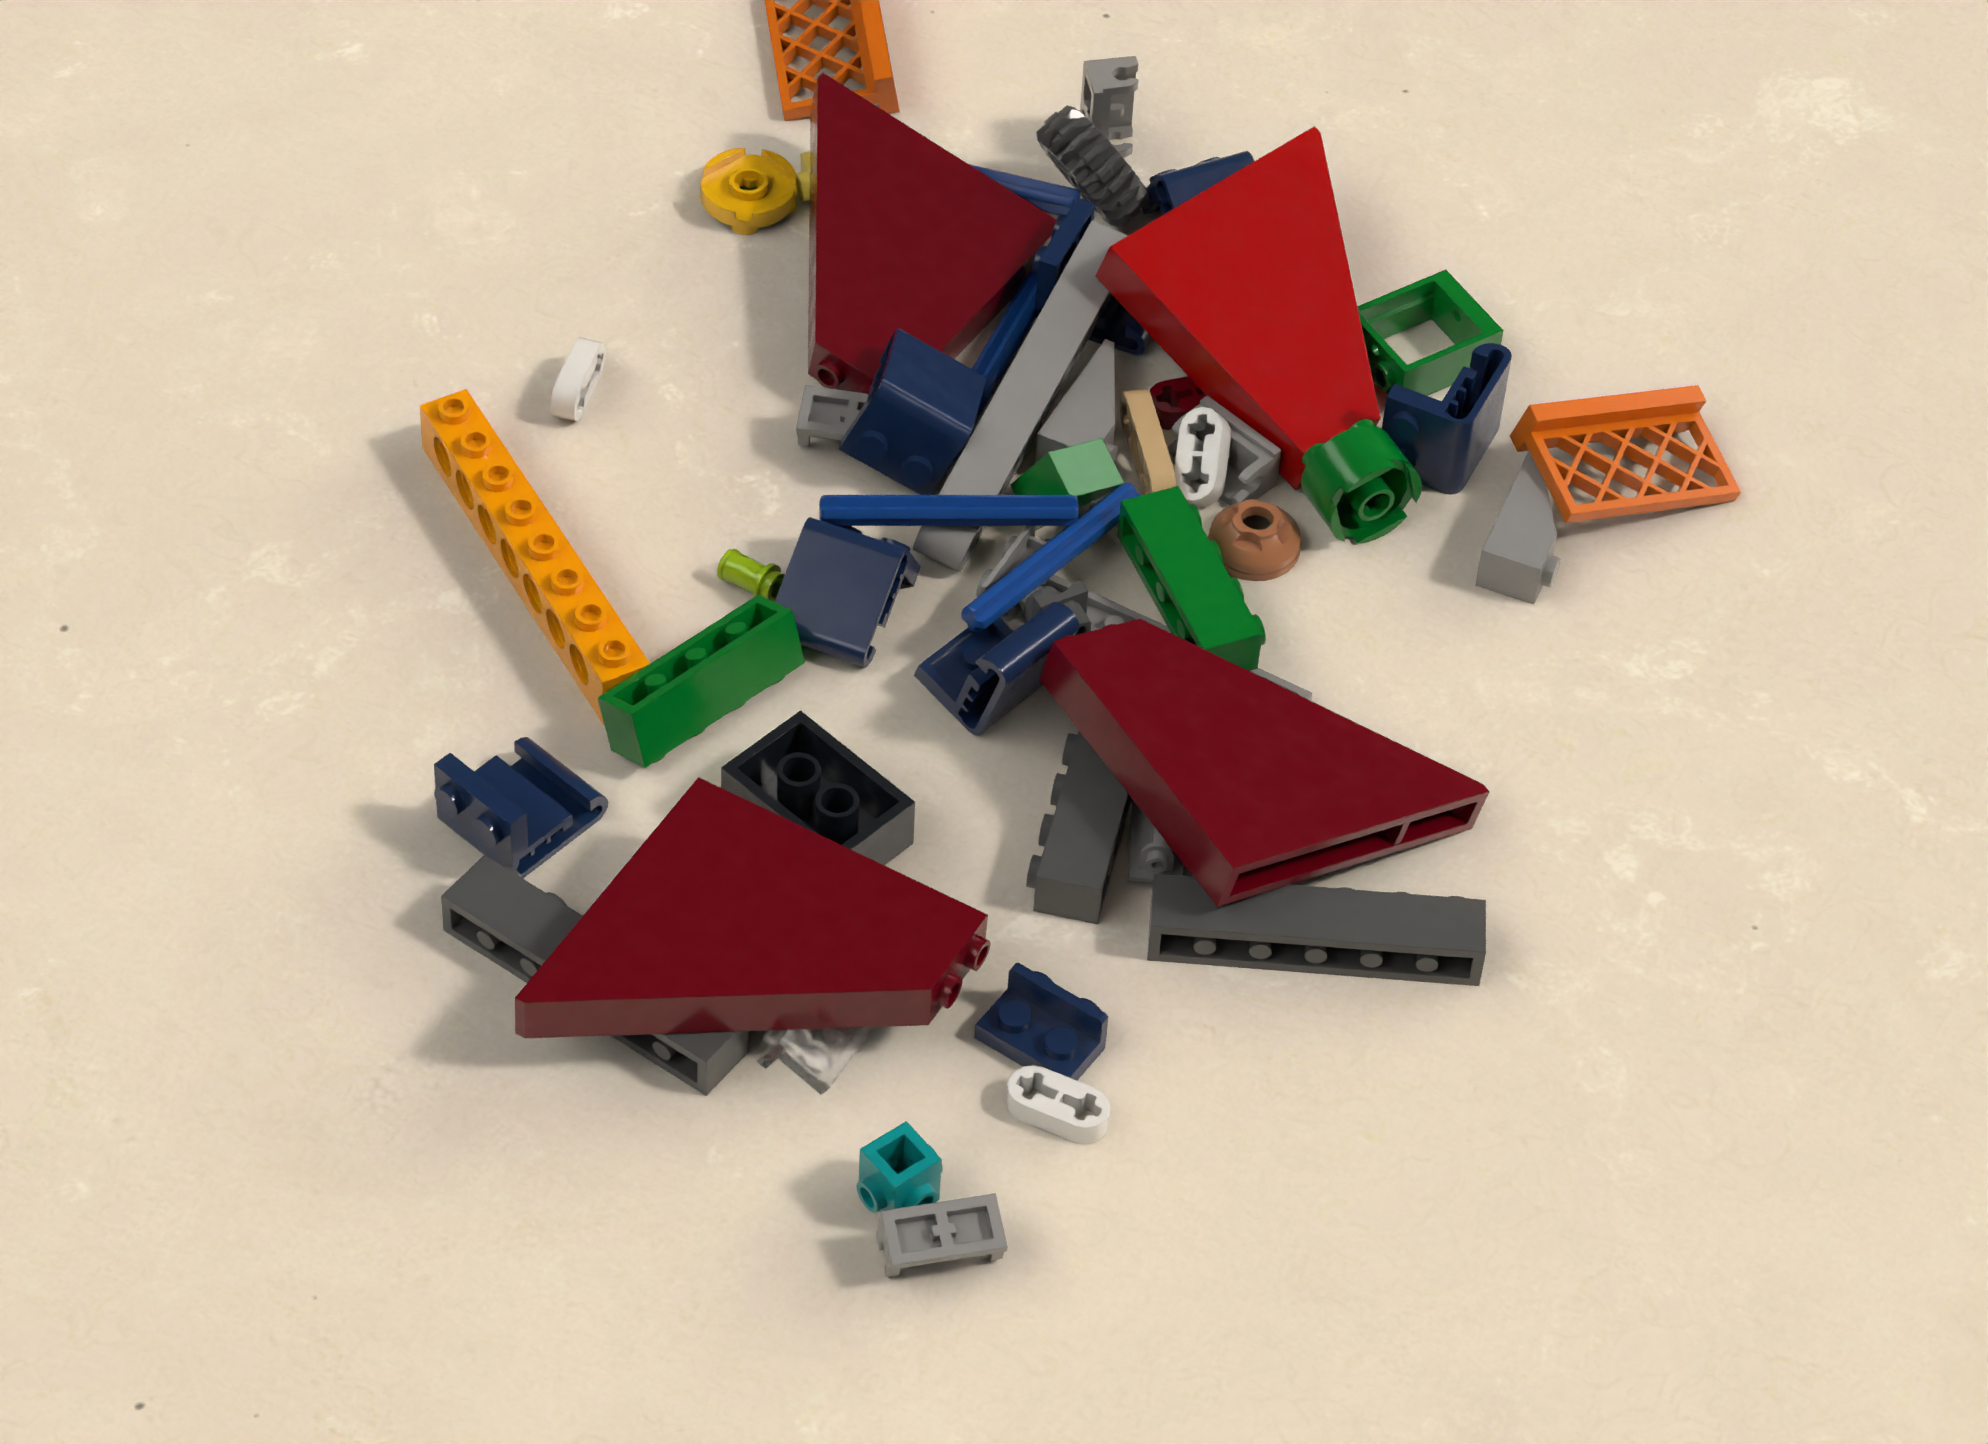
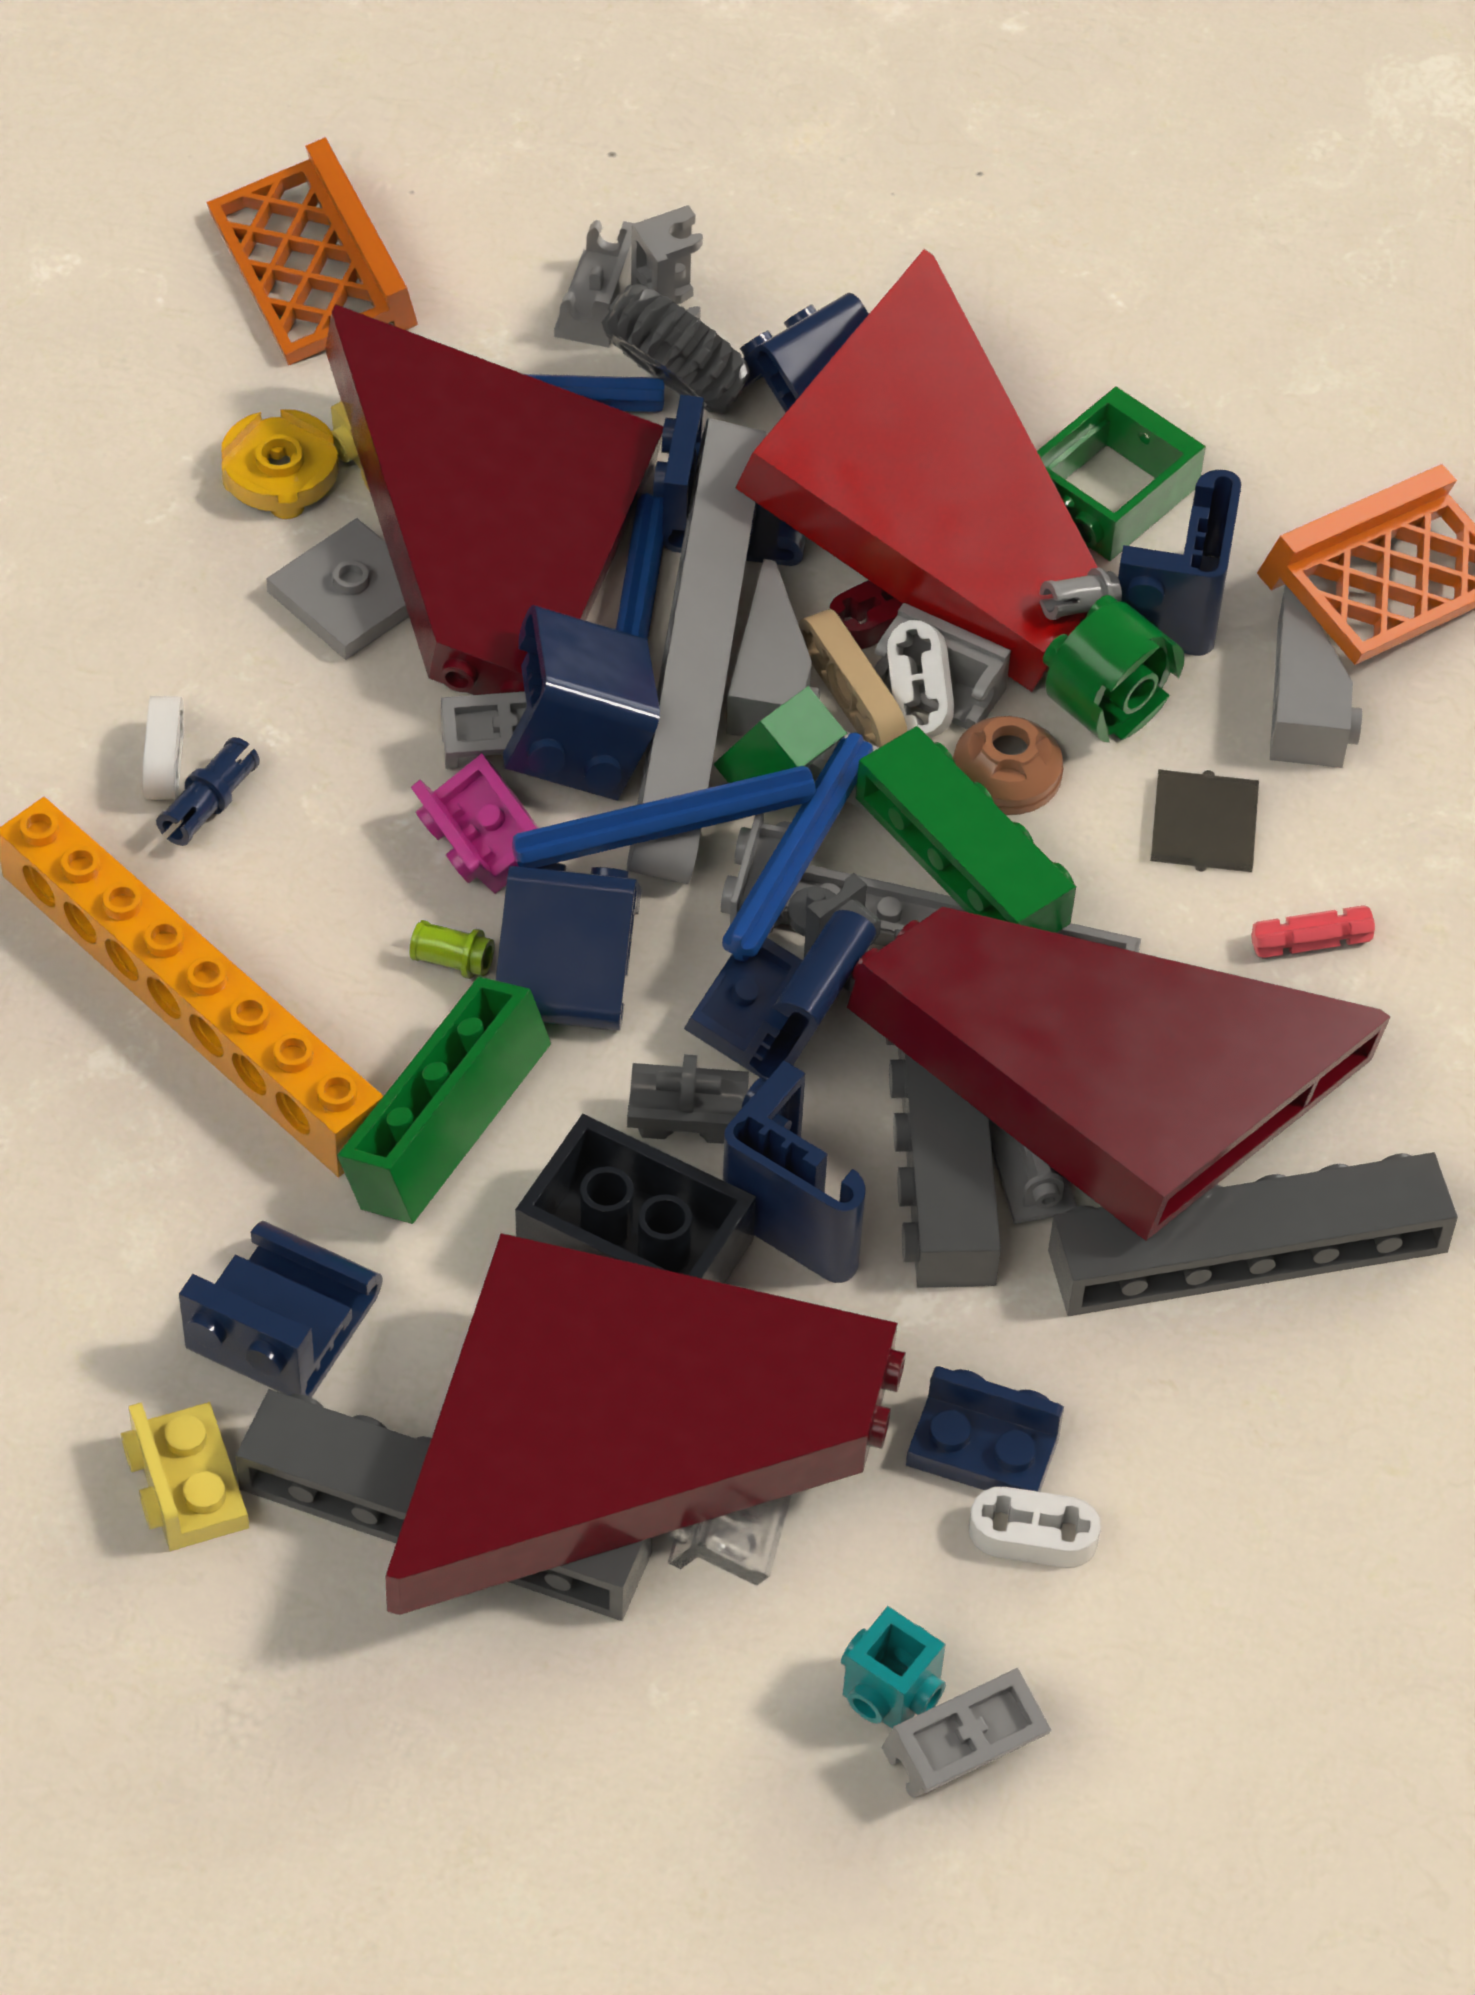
camera: 15 degrees left, 5 degrees up
(403, 907) = (187, 1475): none -> light yellow bracket
(601, 418) = (208, 791): none -> dark blue pin
(764, 294) = (343, 589): none -> light grey plate
(800, 481) = (478, 819): none -> dark pink bracket
(896, 726) = (684, 1099): none -> dark grey hips
(943, 779) = (789, 1179): none -> dark blue piece
(1060, 94) = (599, 278): none -> light grey hinge
(1343, 415) = (1079, 593): none -> light grey pin
(1402, 618) = (1204, 820): none -> clear smoke piece
(1458, 719) = (1313, 931): none -> coral axle

